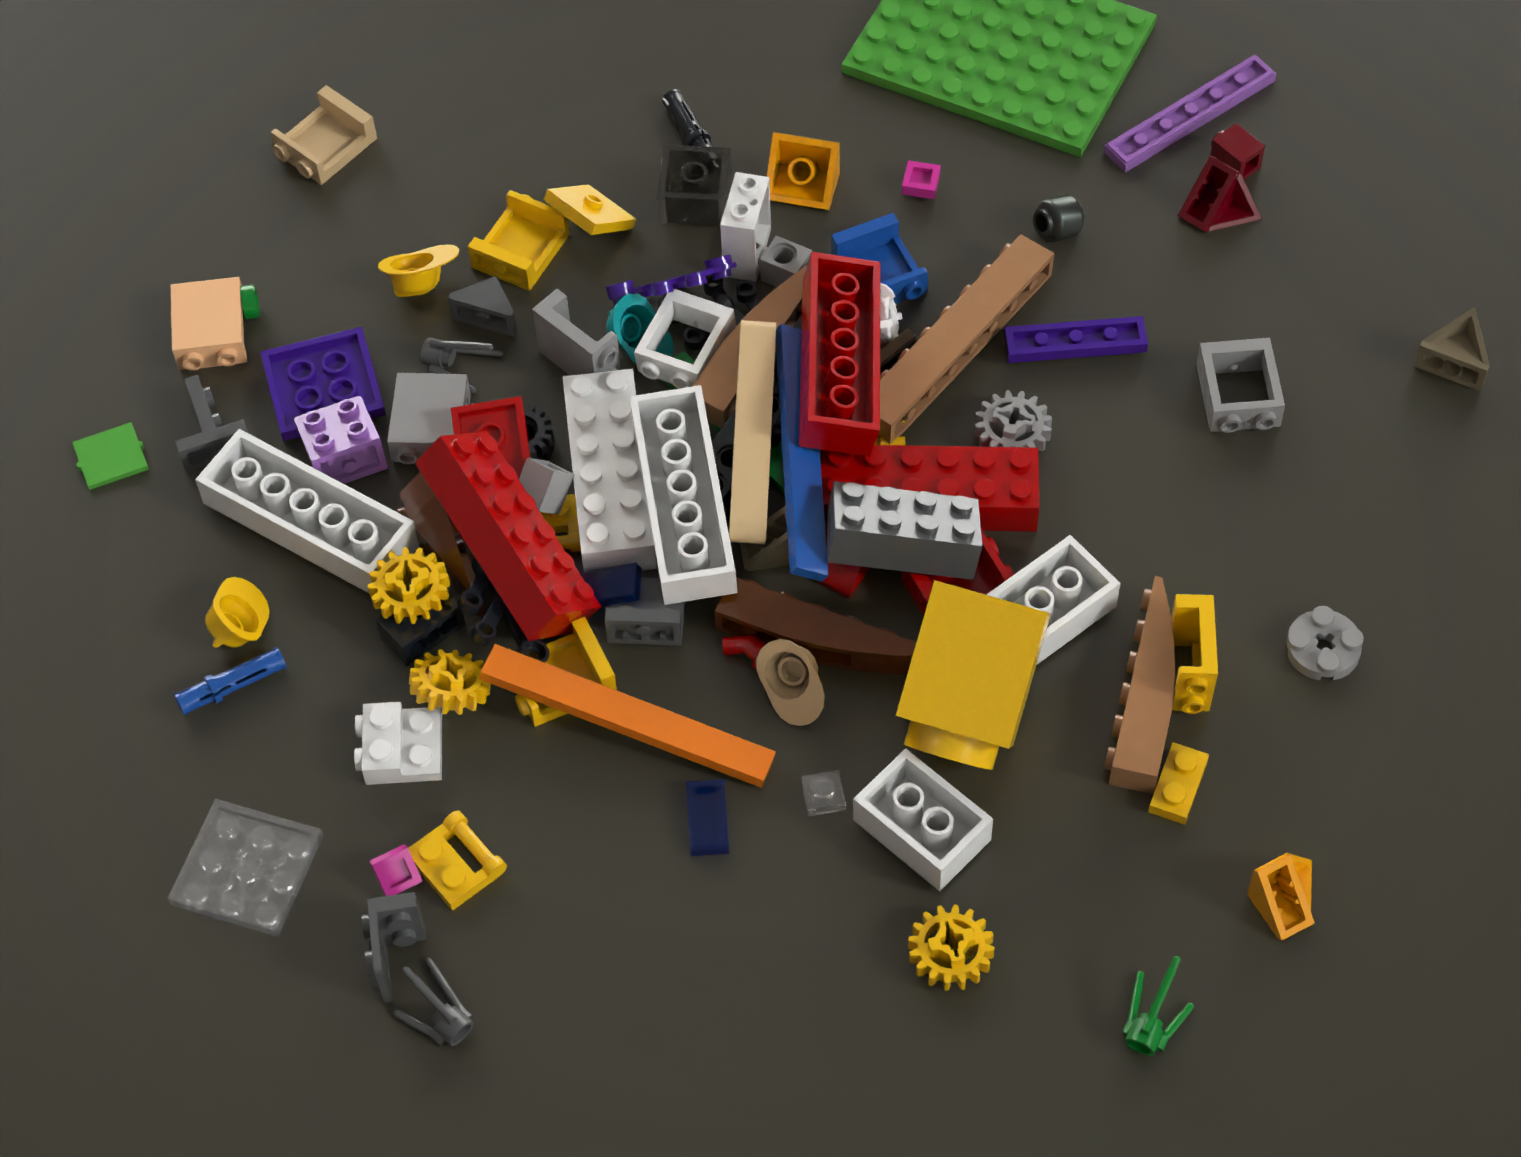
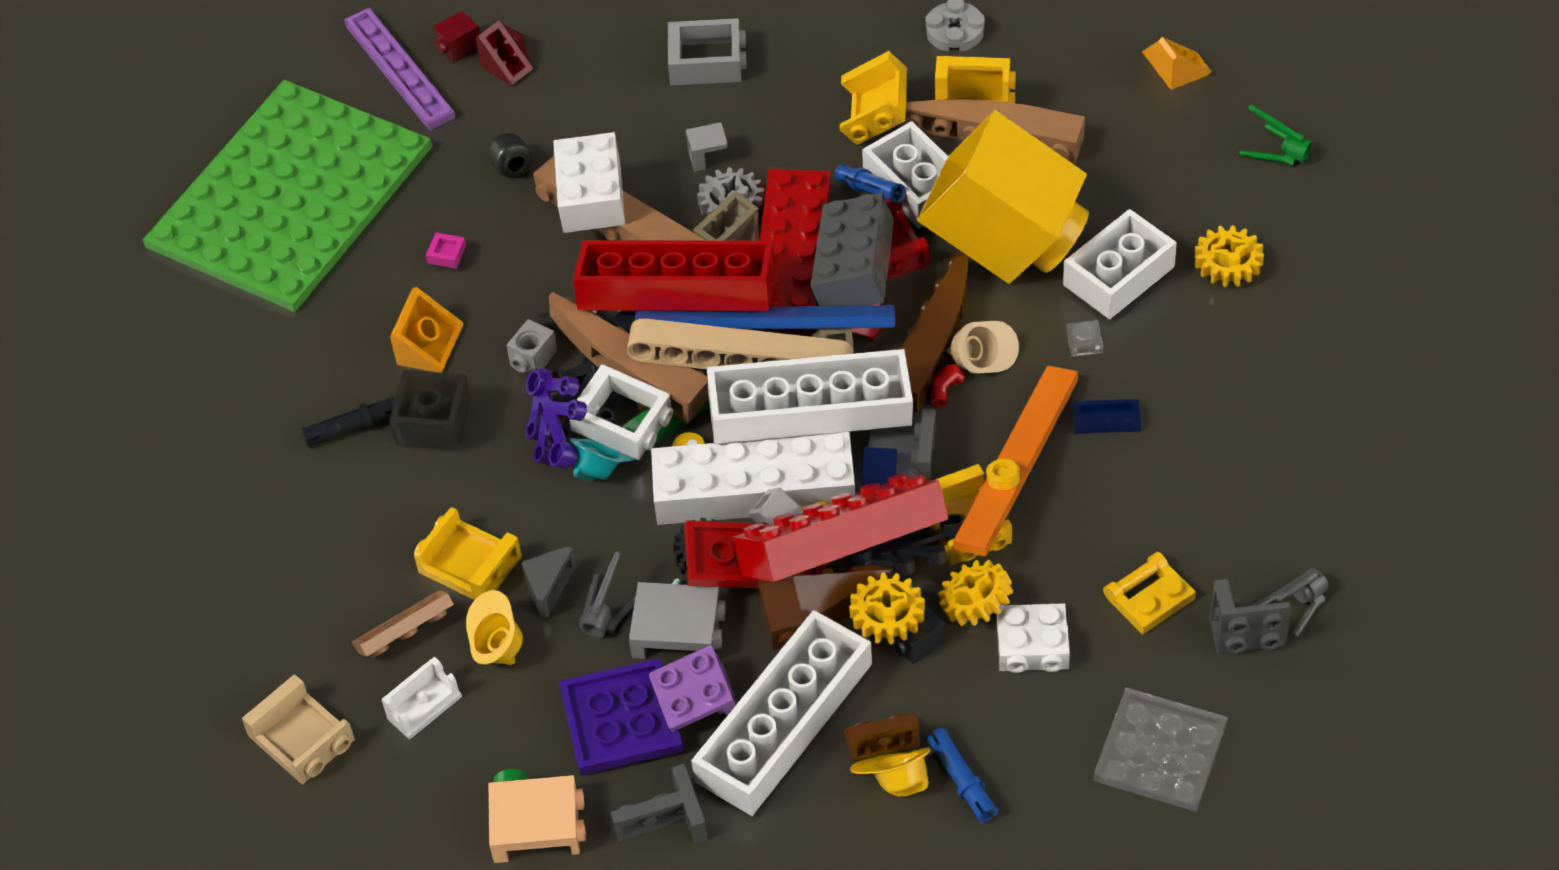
camera: 85 degrees left, 5 degrees down
(280, 603) = (882, 736): none -> reddish brown bracket
(352, 223) = (421, 698): none -> white hinge
(396, 871) = (1165, 631): dark pink plate -> none
(439, 199) = (403, 624): none -> medium nougat plate
(567, 344) = (615, 501): light grey panel -> none
(588, 692) = (1003, 474): none -> yellow tile
(589, 209) = (445, 493): yellow plate -> none
(746, 224) = (491, 379): white window -> none
(881, 242) = (531, 283): blue panel -> none
(947, 416) = (731, 221): none -> dark tan slope
(990, 273) = (589, 182): none -> white brick
(1023, 556) = (862, 180): none -> blue pin
(1075, 339) = (642, 153): dark purple plate -> none
(1089, 392) = (704, 140): none -> light grey panel
(1167, 557) = (877, 97): none -> yellow panel
(1178, 783) = (1095, 119): yellow plate -> none

